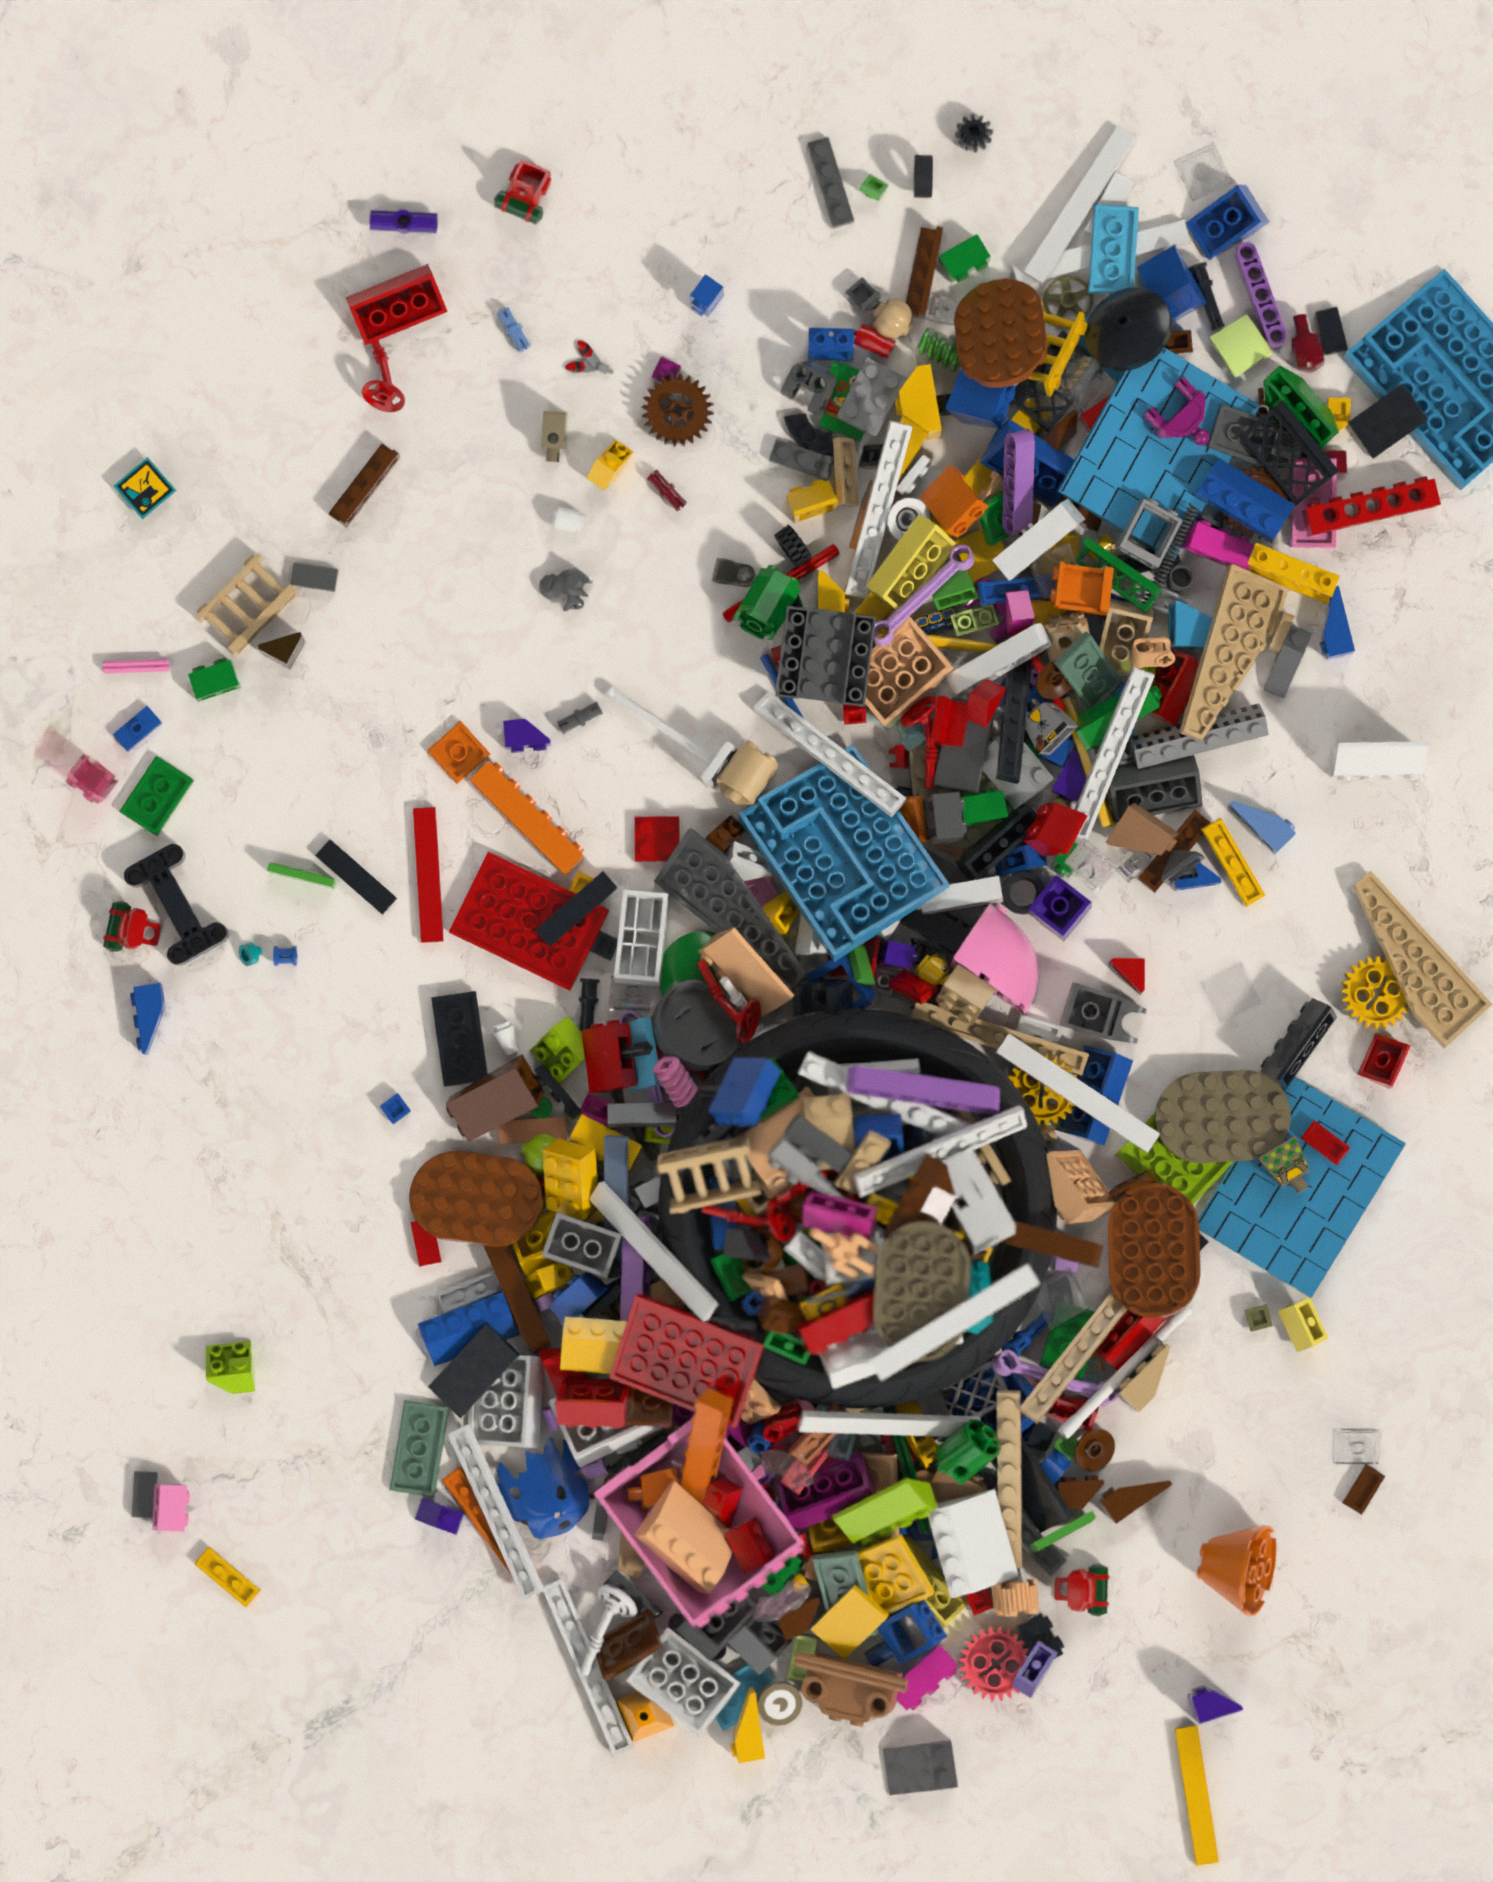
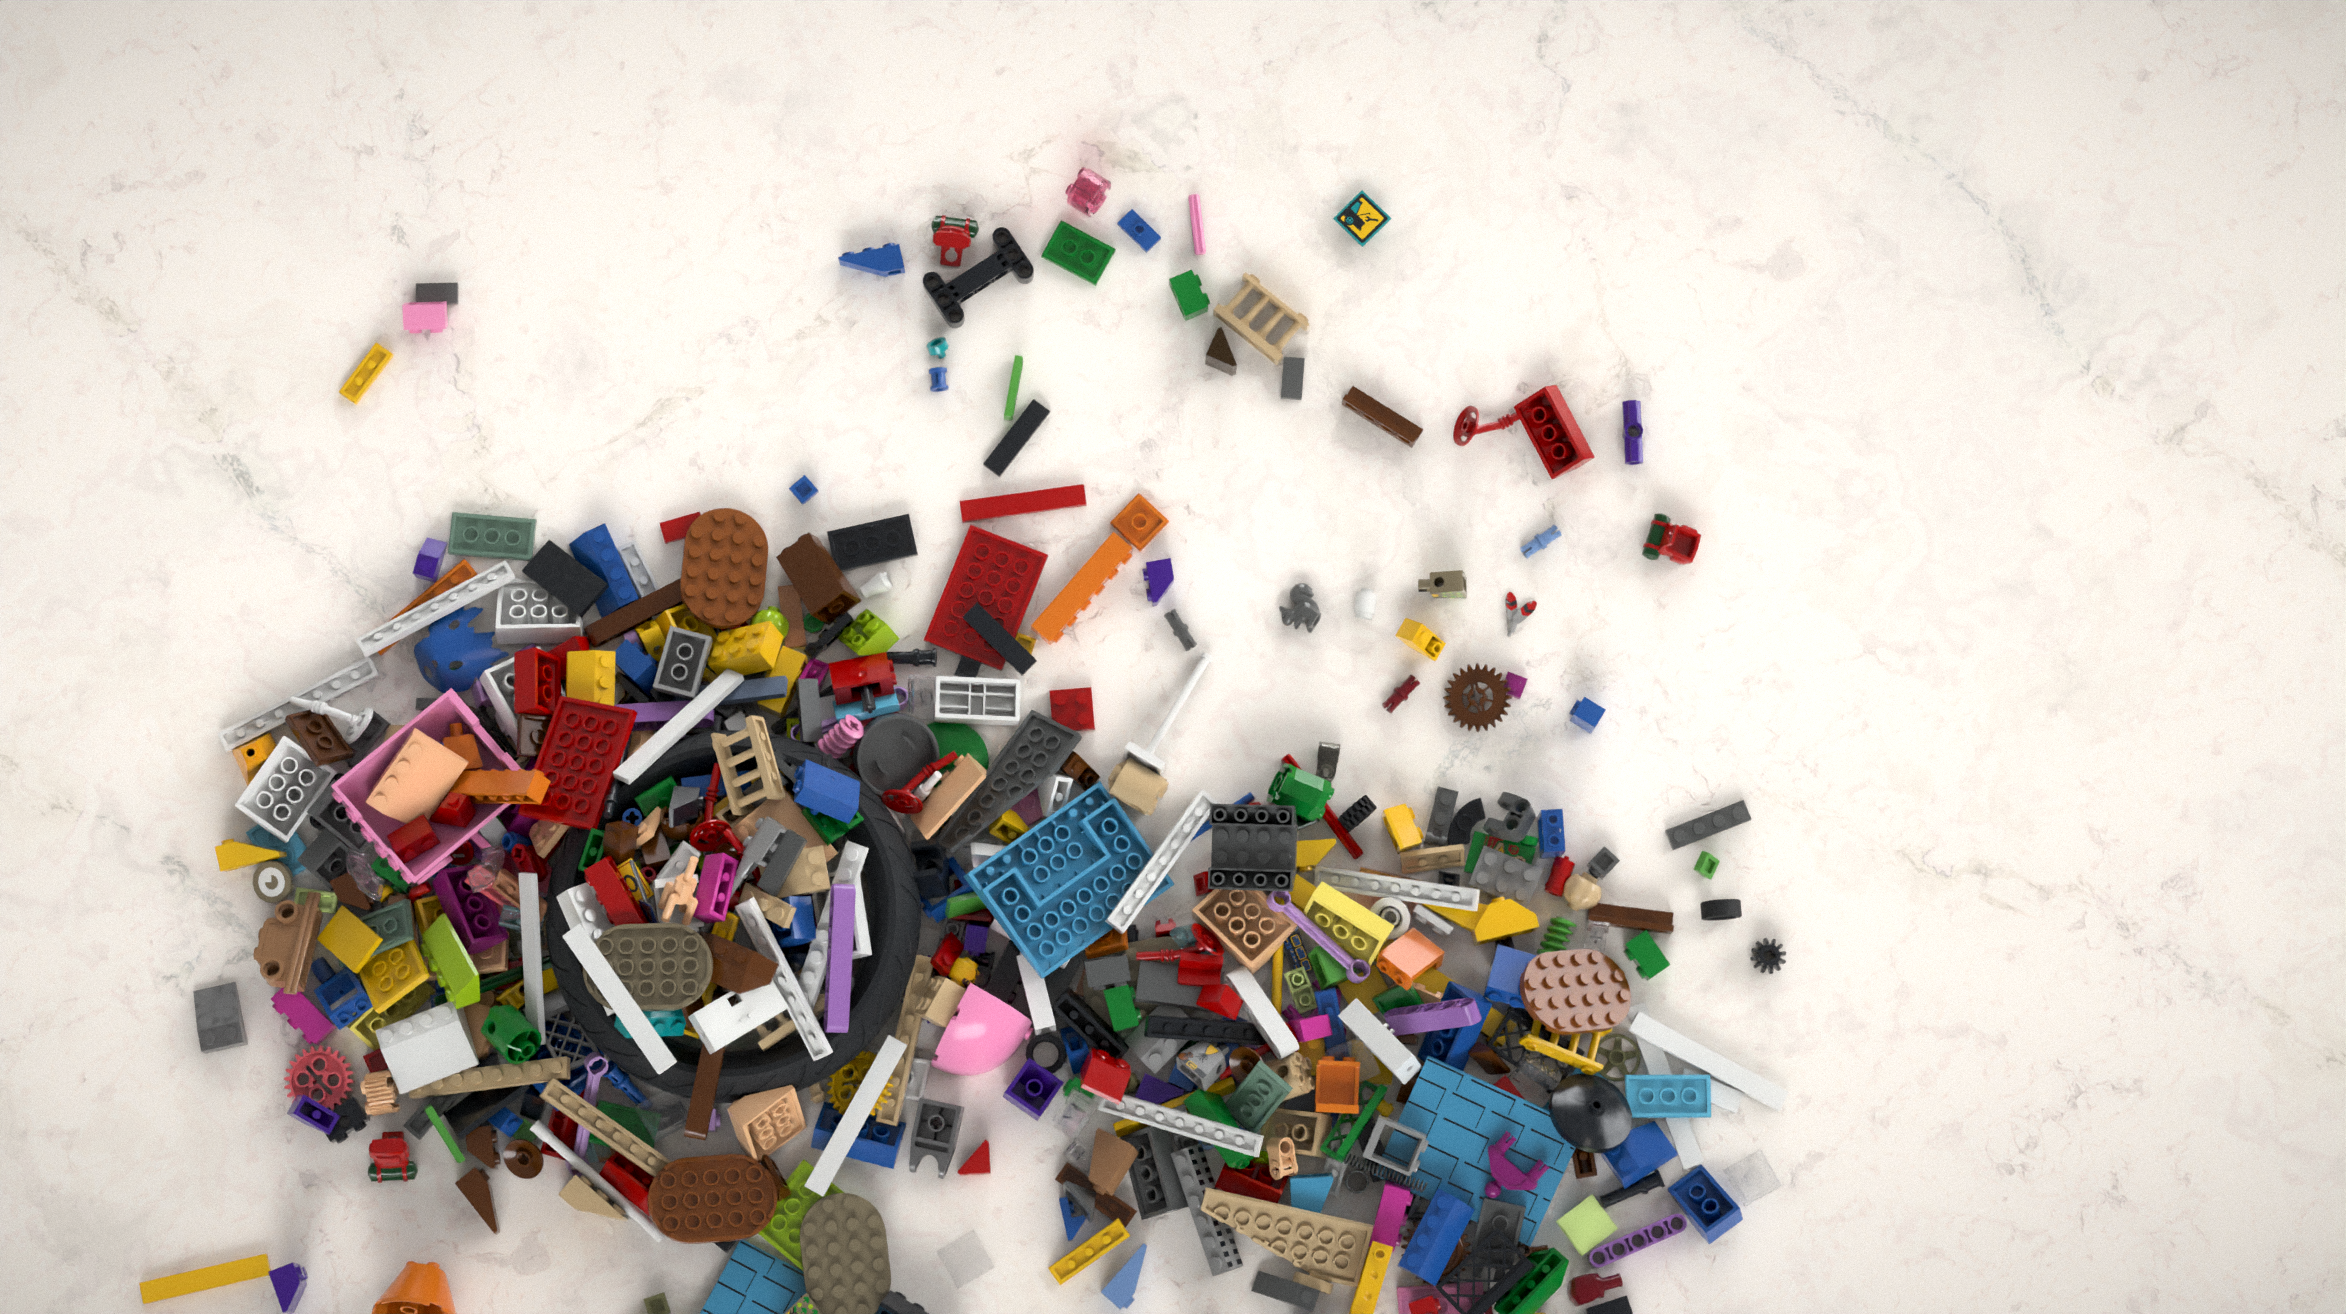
camera: 80 degrees right, 5 degrees down
(231, 1367) = (556, 360): lime slope -> none

